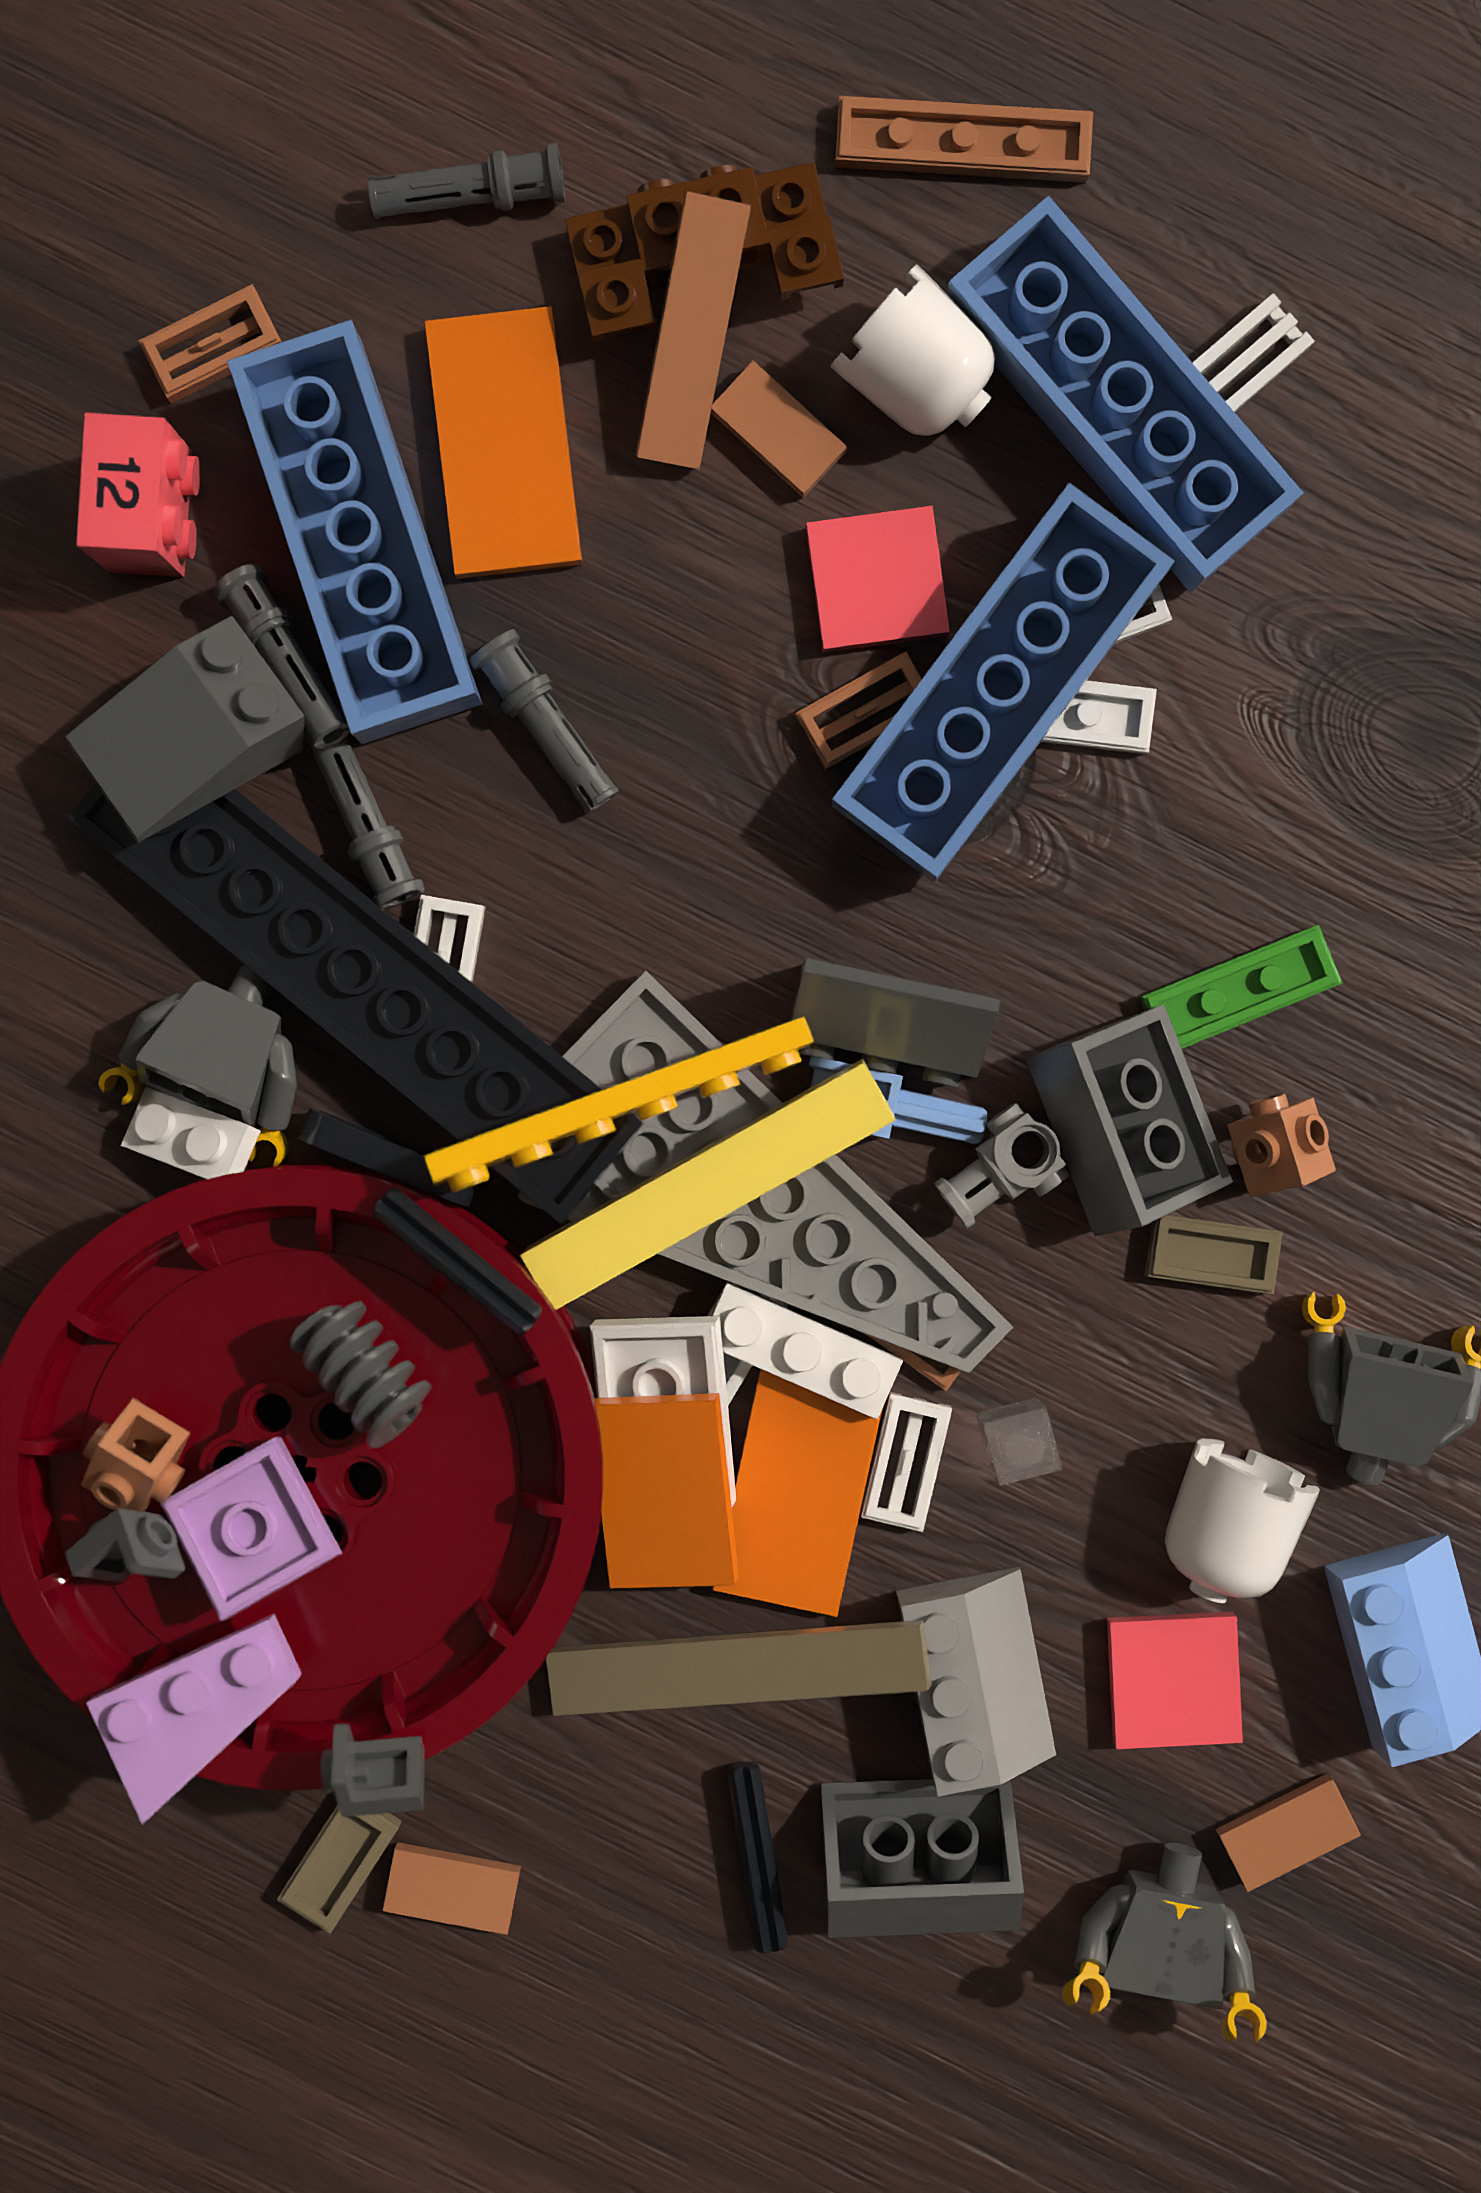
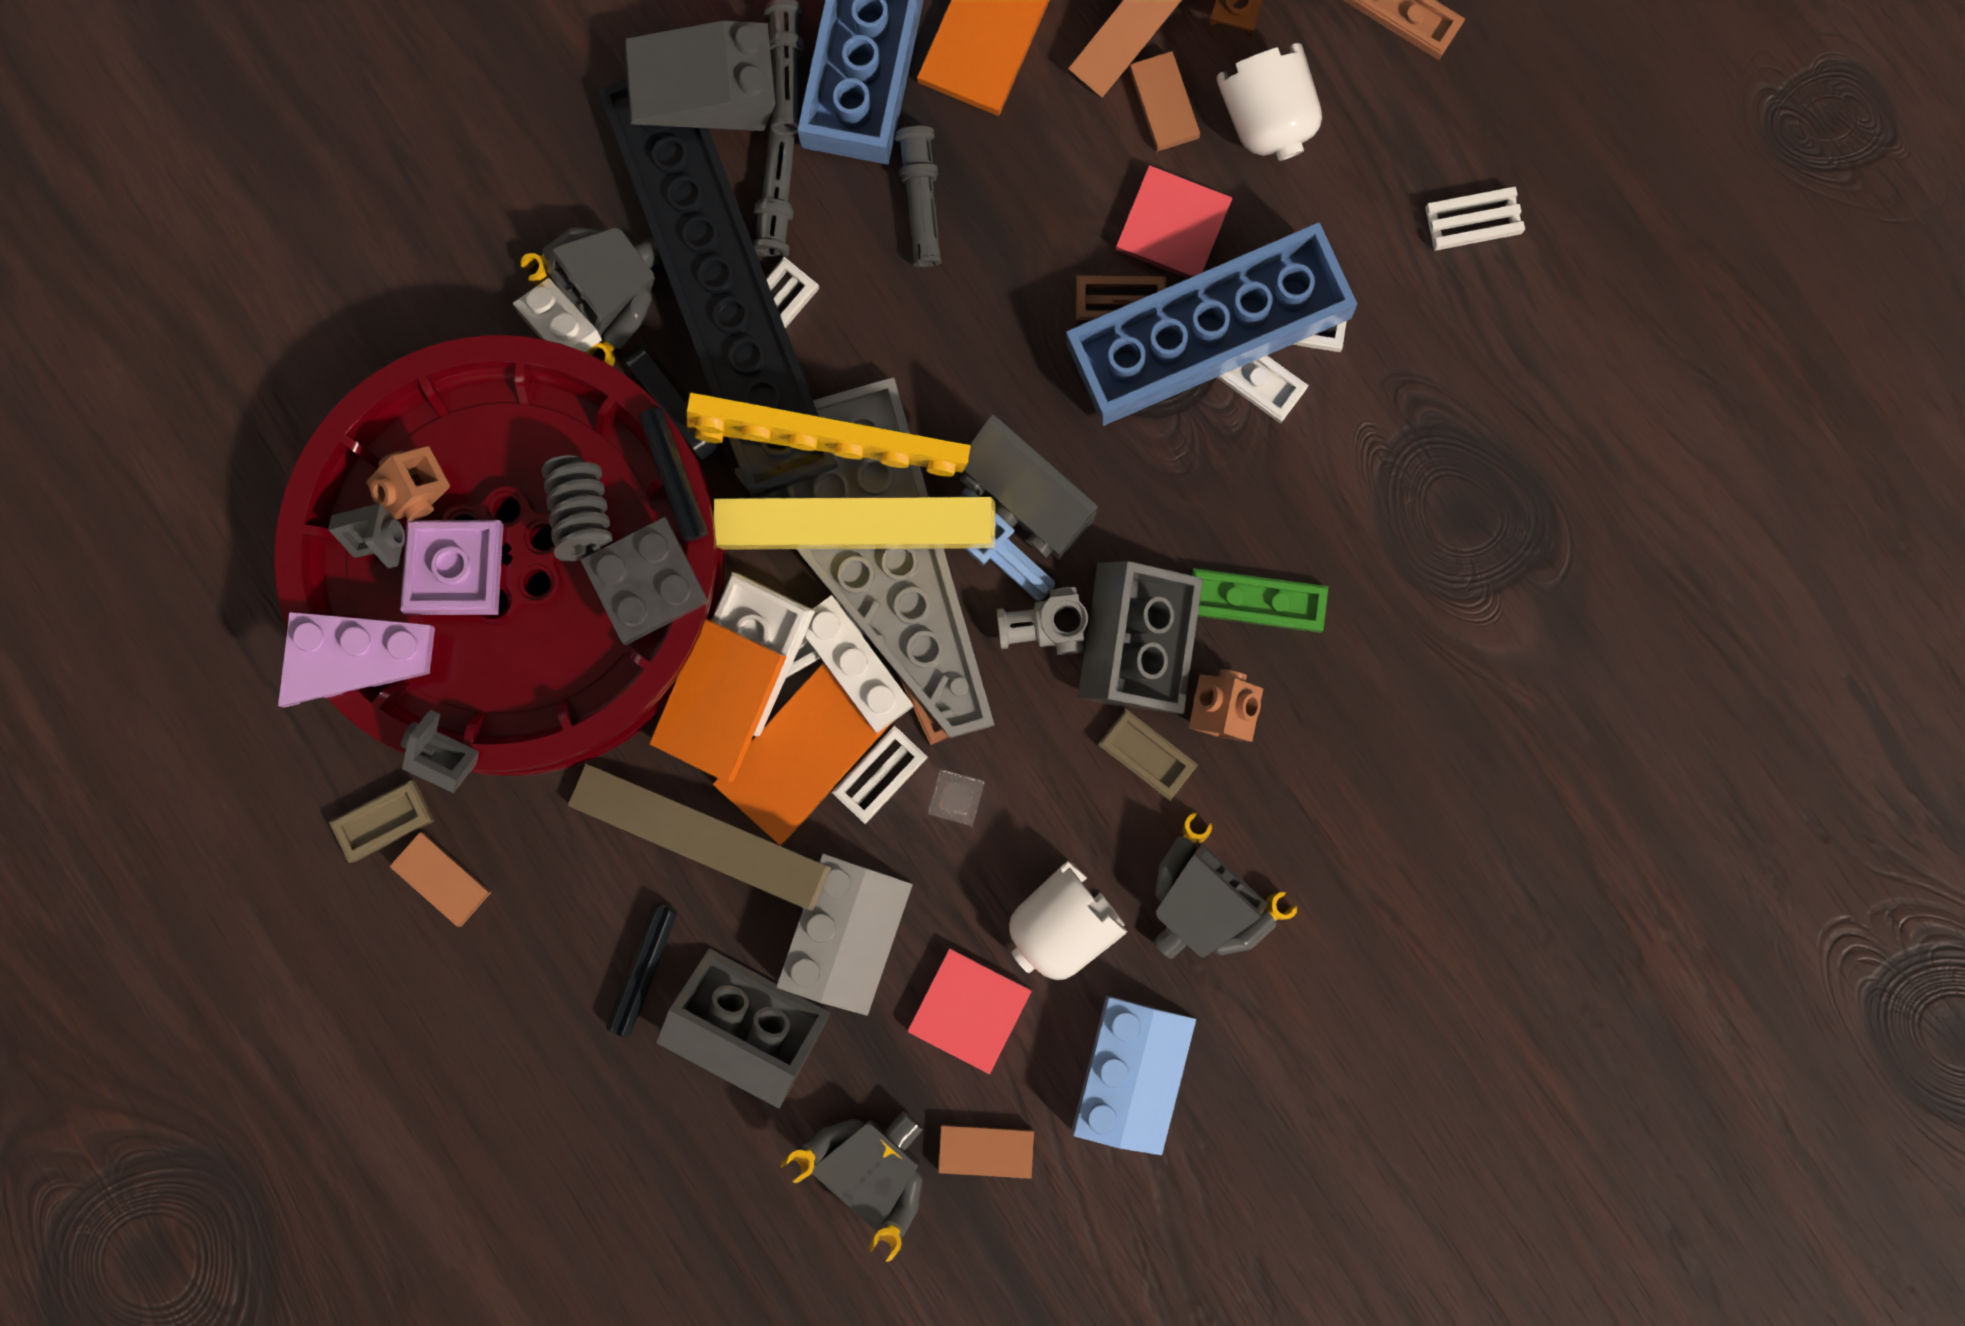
camera: 30 degrees right, 5 degrees down
(499, 1412) = (644, 581): none -> flat silver plate
(1122, 395) = (1385, 194): medium blue brick -> none

